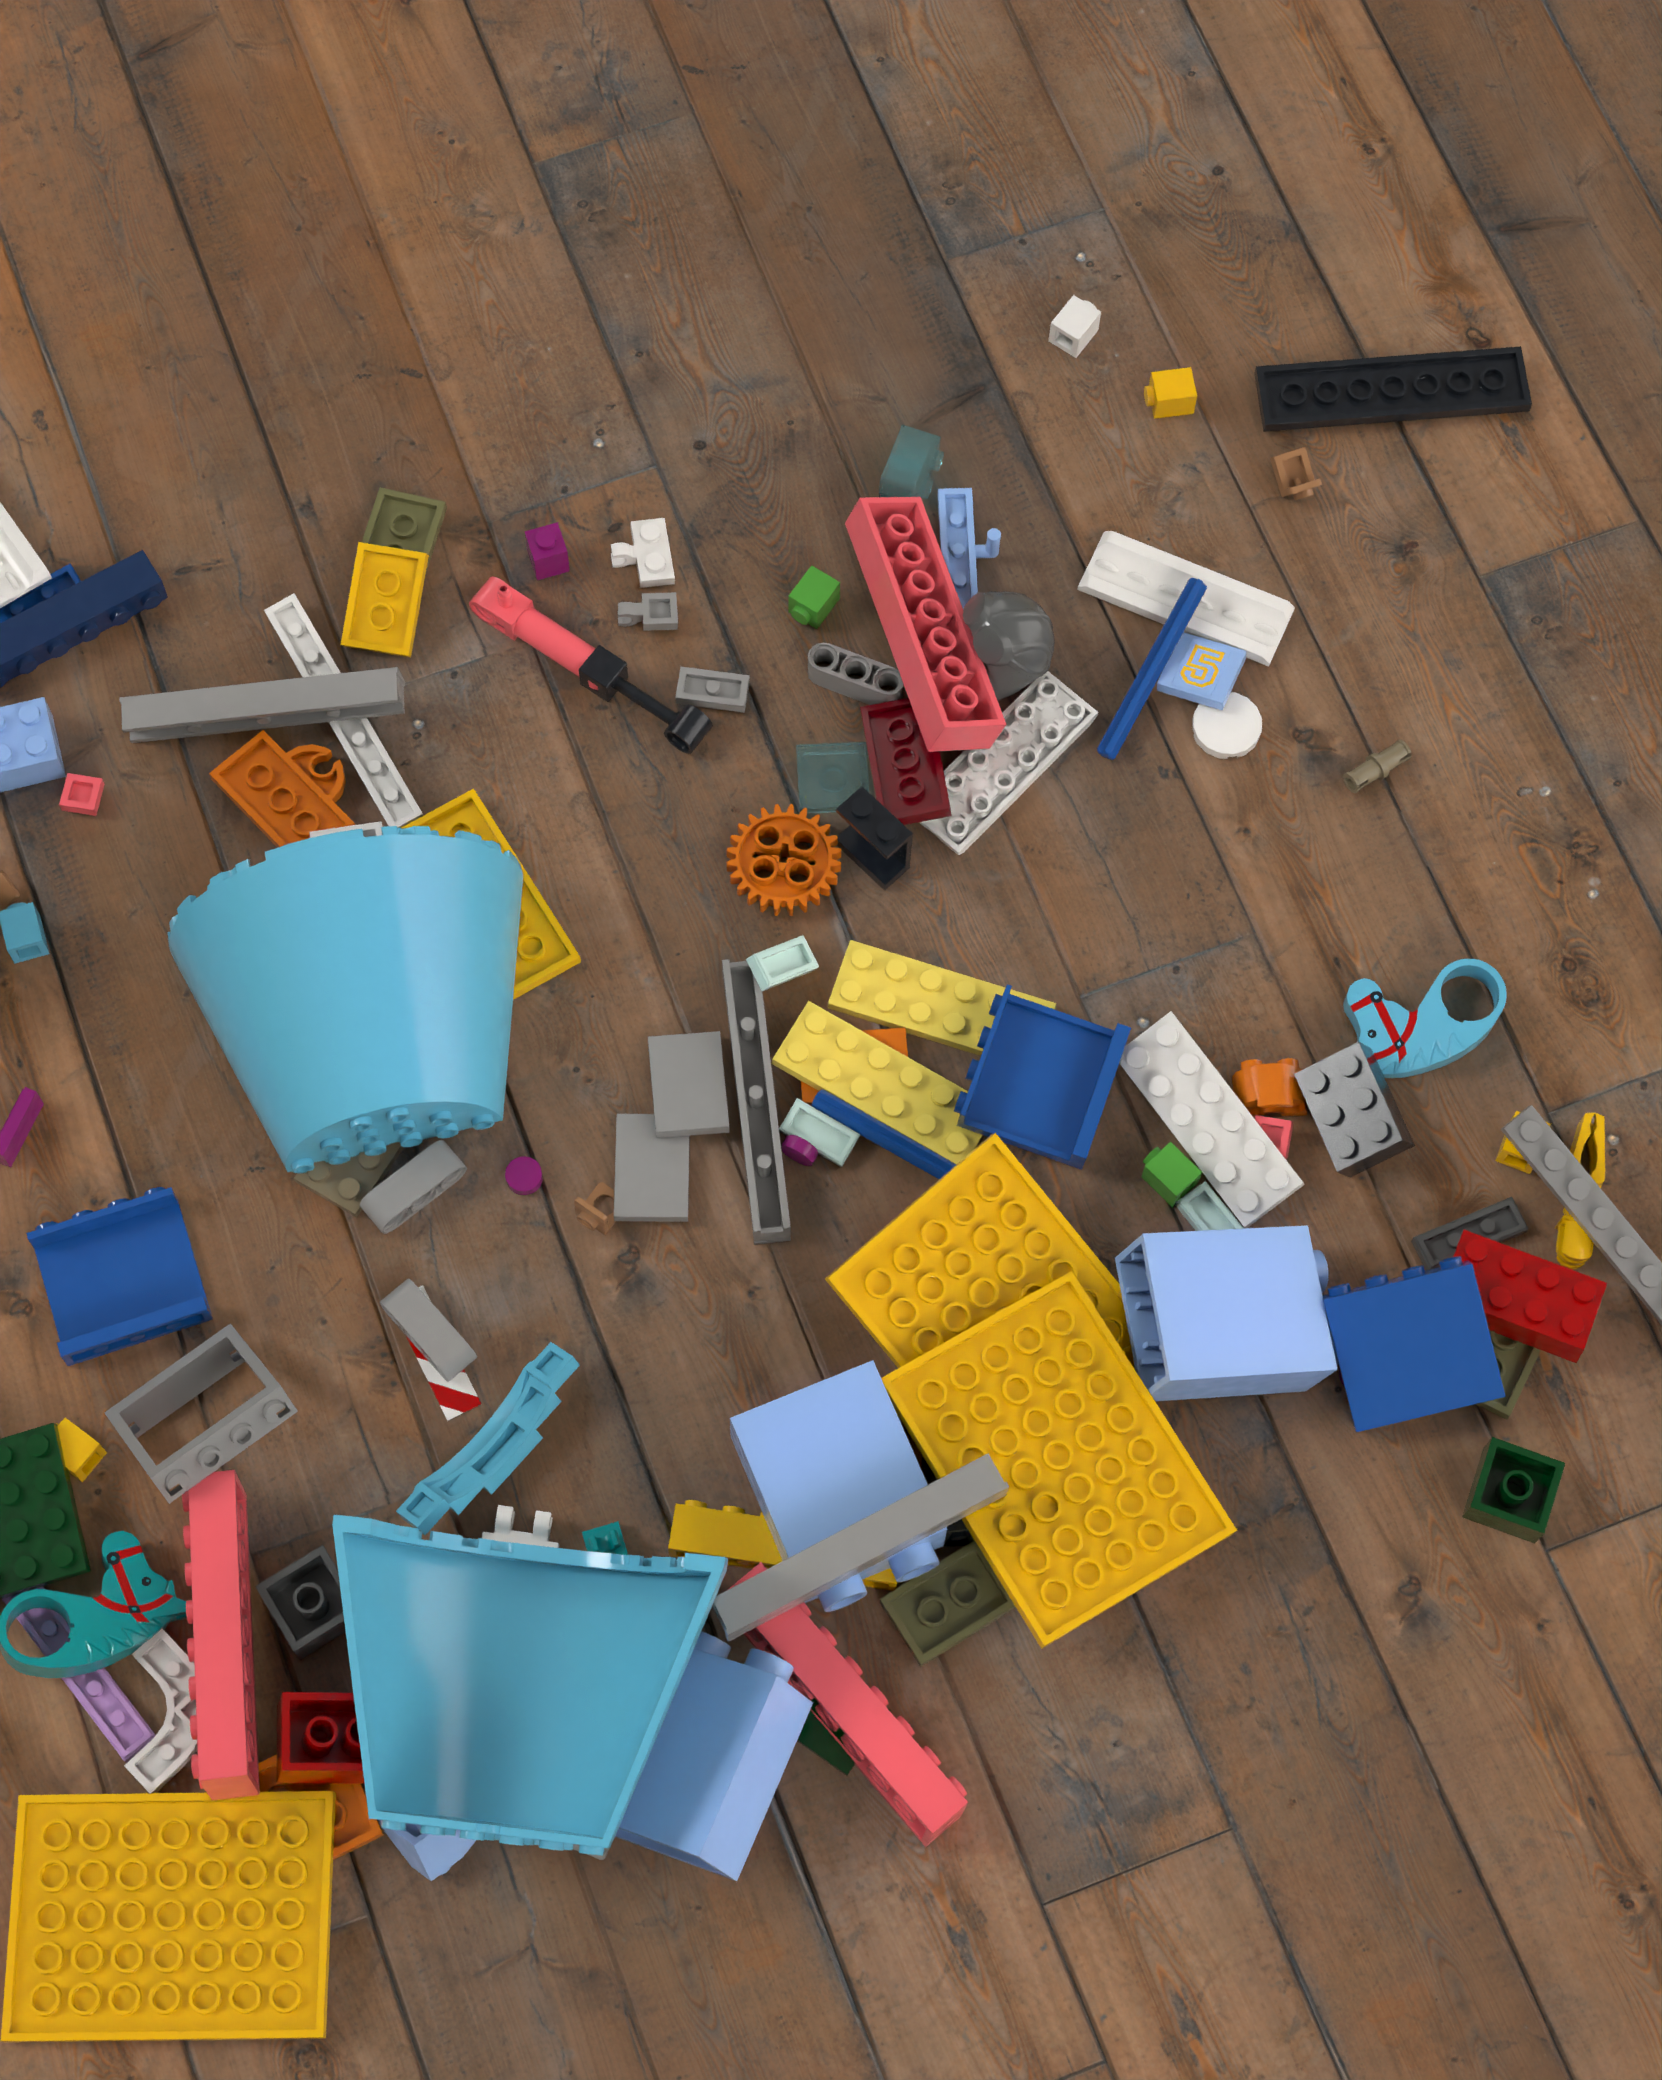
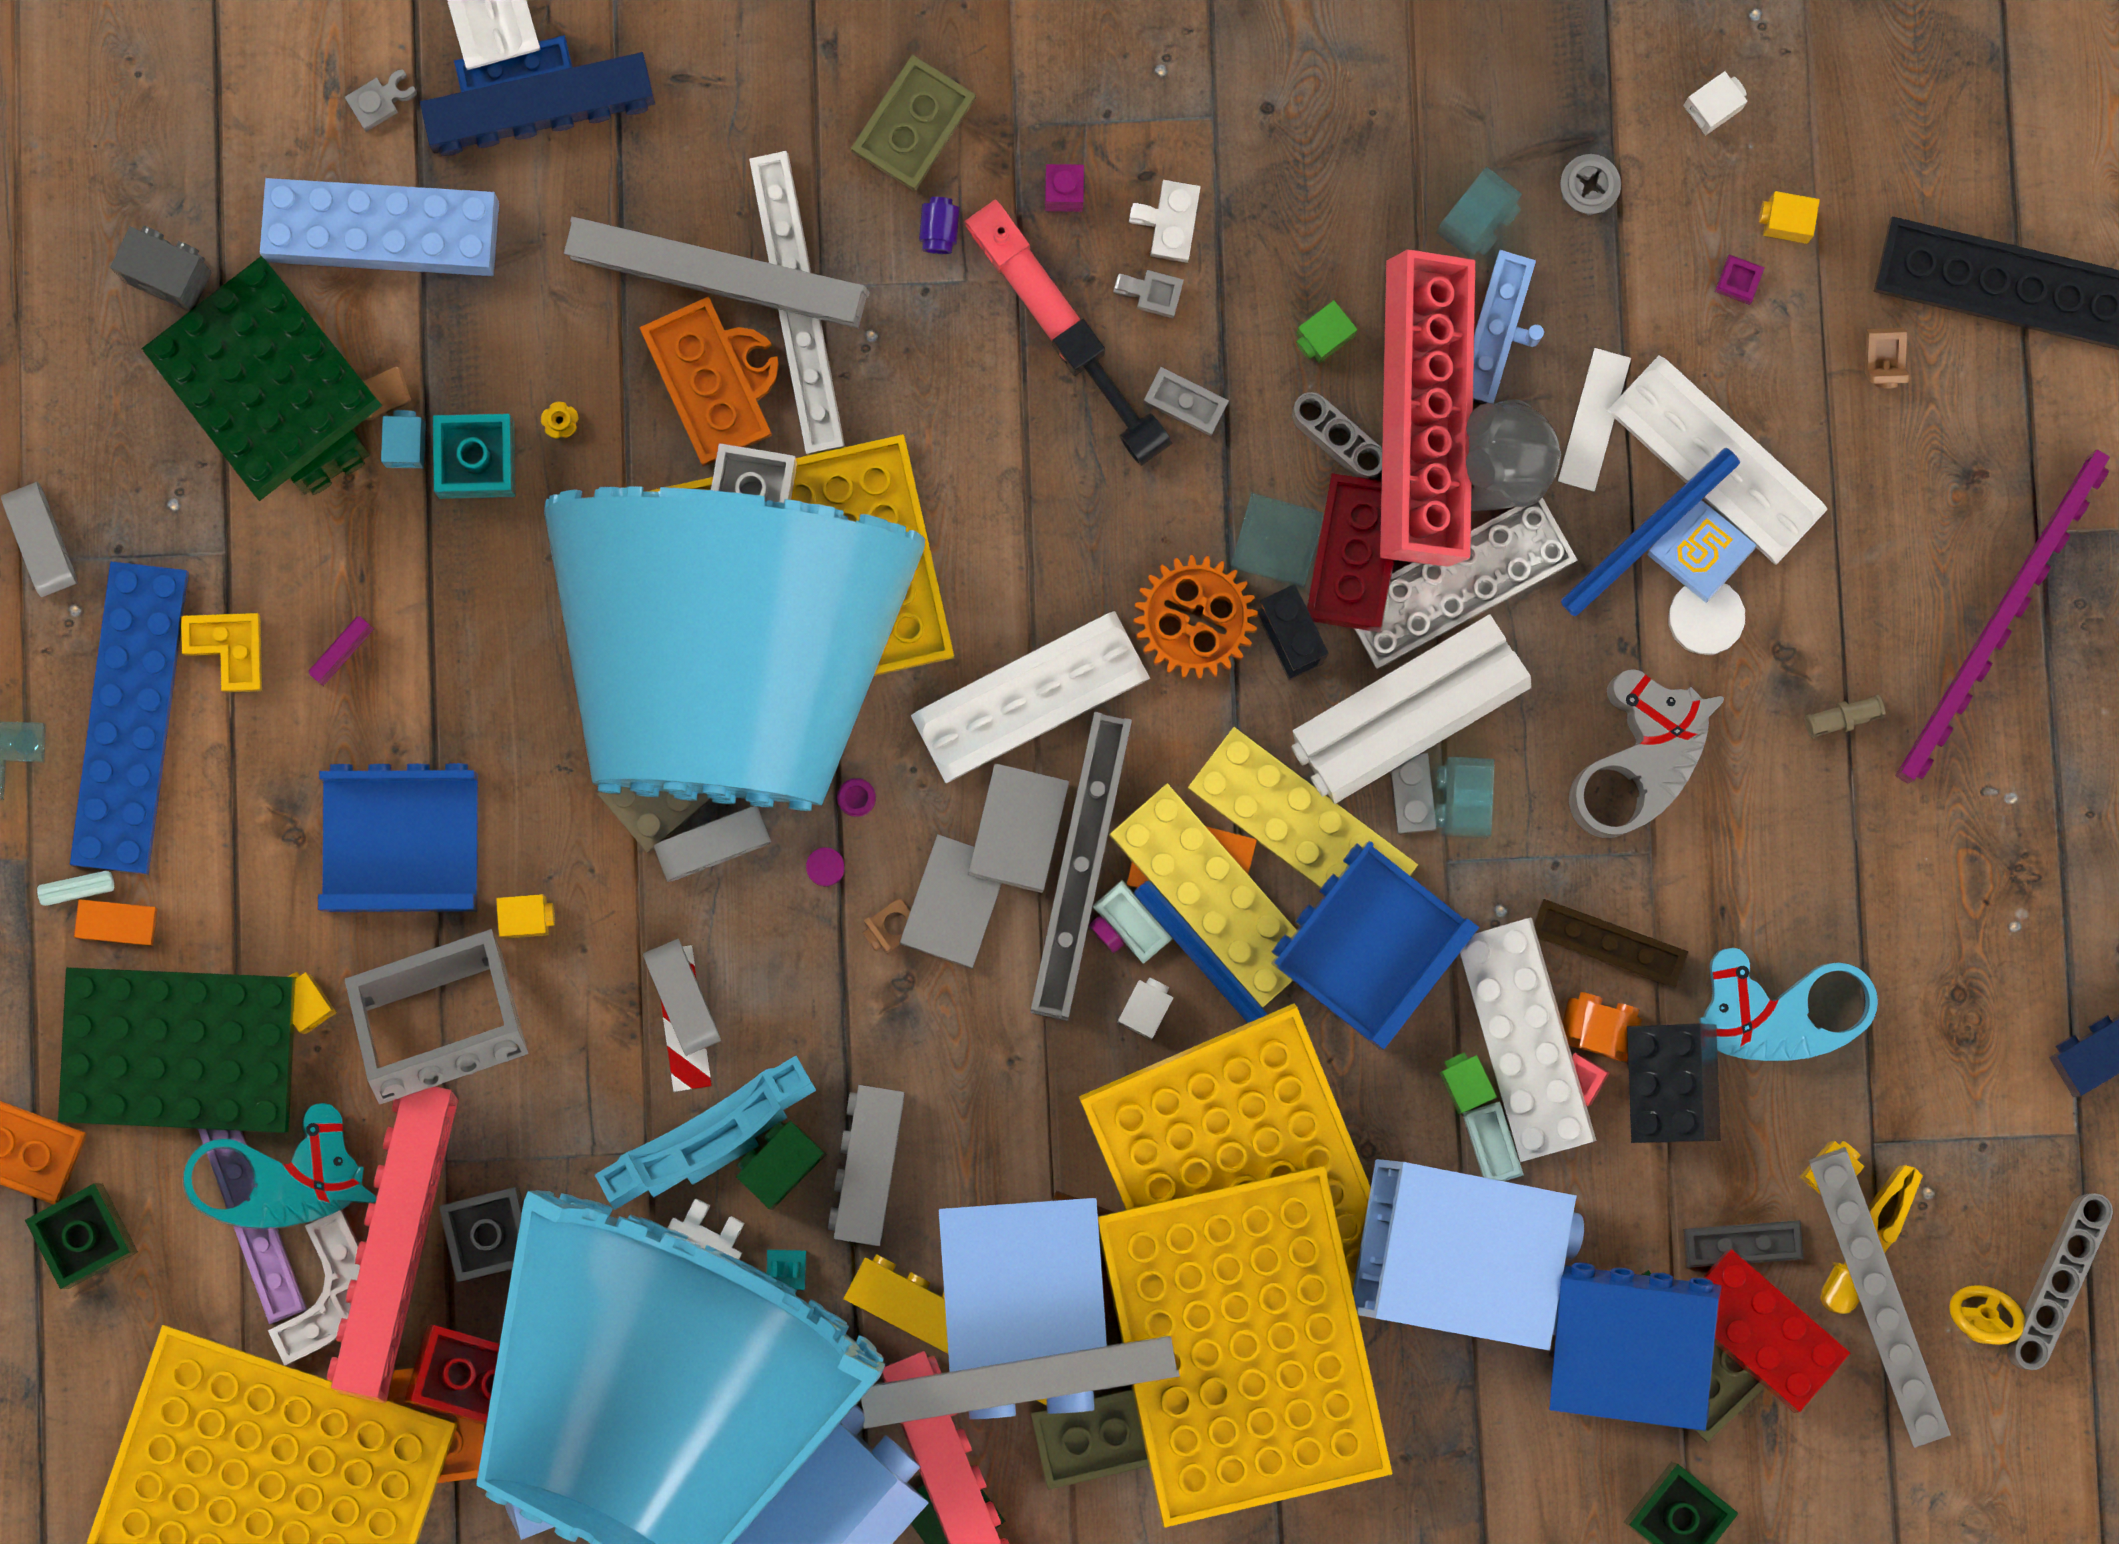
camera: 15 degrees right, 15 degrees up
(81, 794) = (503, 306): coral plate -> none
(91, 921) = (474, 456): none -> teal brick
(164, 881) = (567, 427): none -> yellow plate
(258, 1305) = (524, 916): none -> yellow brick
(384, 599) = (877, 191): yellow plate -> none
(448, 614) = (939, 225): none -> dark purple brick
(532, 1107) = (856, 797): none -> magenta tile
(568, 1444) = (779, 1164): none -> dark green brick
(651, 1424) = (868, 1165): none -> light grey brick
(658, 972) = (1030, 696): none -> white plate
(782, 963) = (1155, 732): light aqua tile -> none
(858, 1202) = (1146, 1008): none -> white brick
(984, 410) = (1585, 167): none -> light grey gear
(1000, 874) = (1410, 710): none -> white brick
(1028, 947) = (1413, 796): none -> light grey plate
(1067, 602) = (1592, 421): none -> white sticker
(1077, 933) = (1466, 797): none -> clear light blue brick
(1148, 455) = (1739, 279): none -> magenta tile
(1233, 849) = (1669, 740): none -> light grey animal
(1250, 1015) = (1609, 943): none -> dark brown plate
(1476, 658) = (1996, 632): none -> magenta plate

